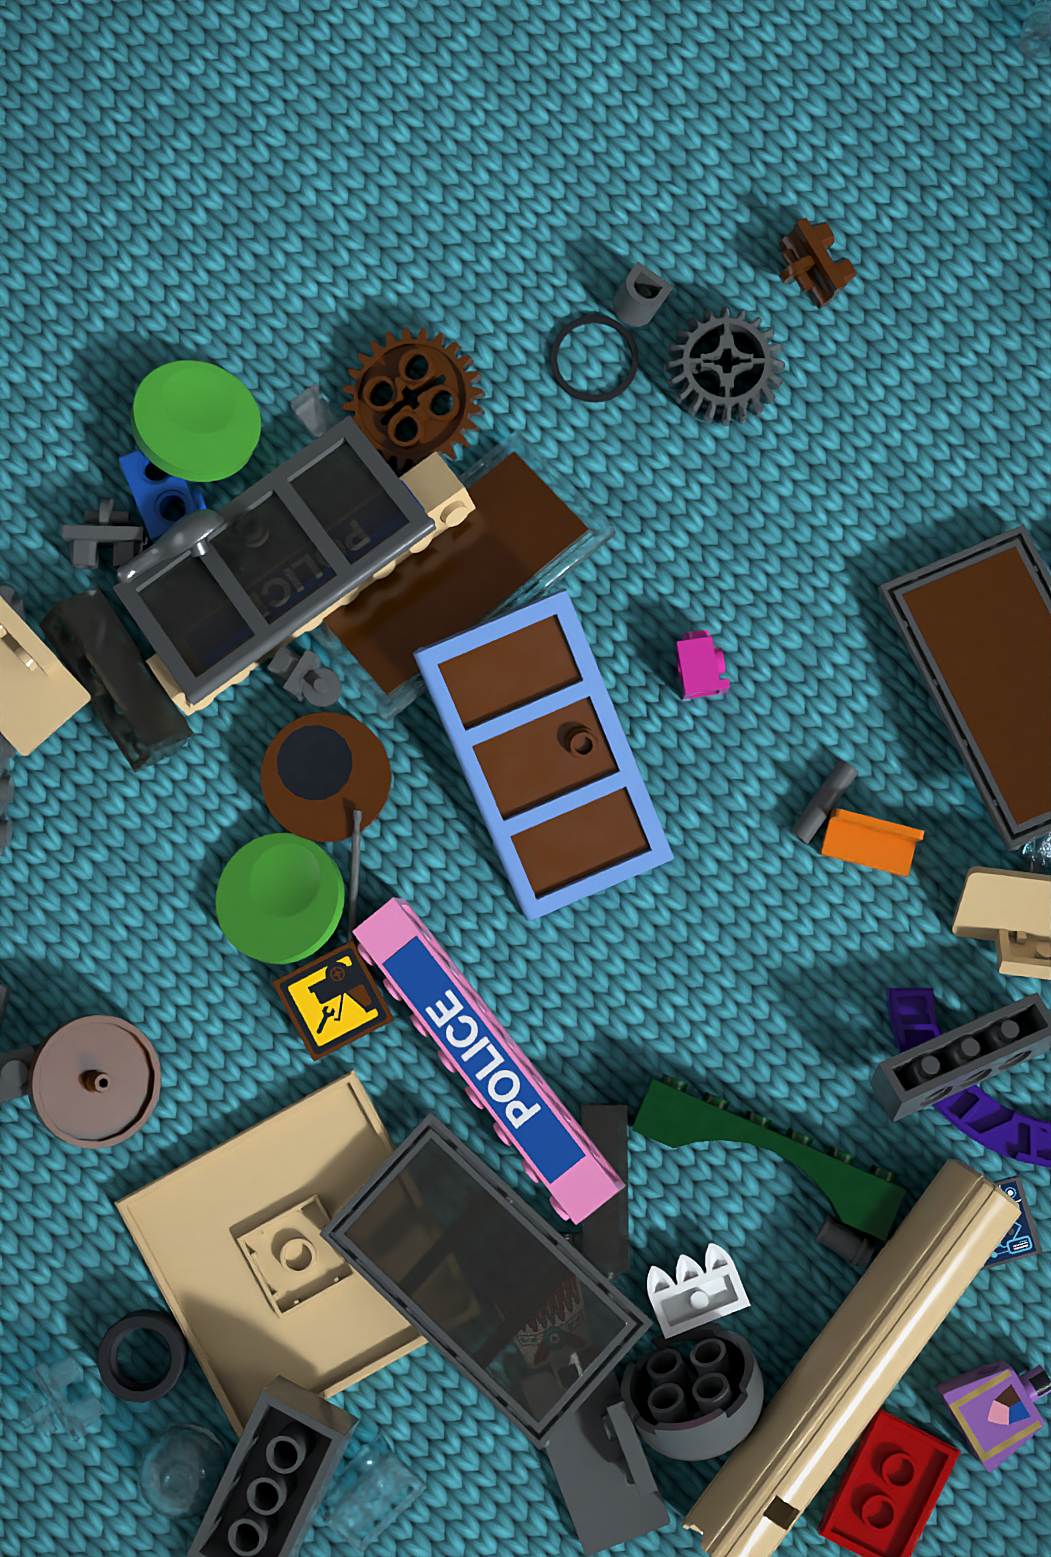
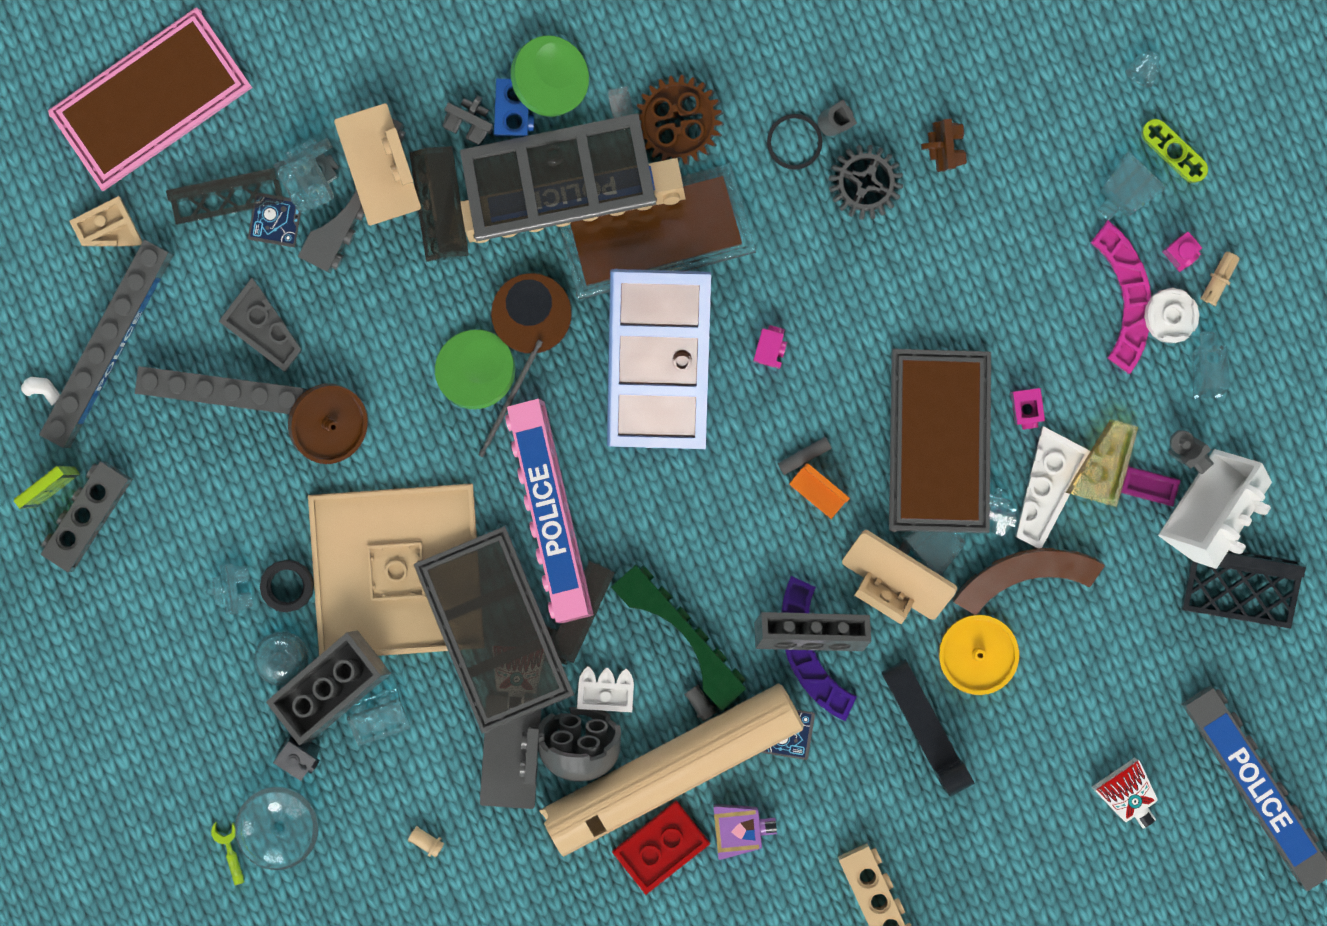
camera: 25 degrees right, 5 degrees up
(184, 534) = (511, 142): flat silver piece -> none
(306, 677) = (546, 253): dark grey hips -> none
(333, 1000) = (478, 440): piece -> none

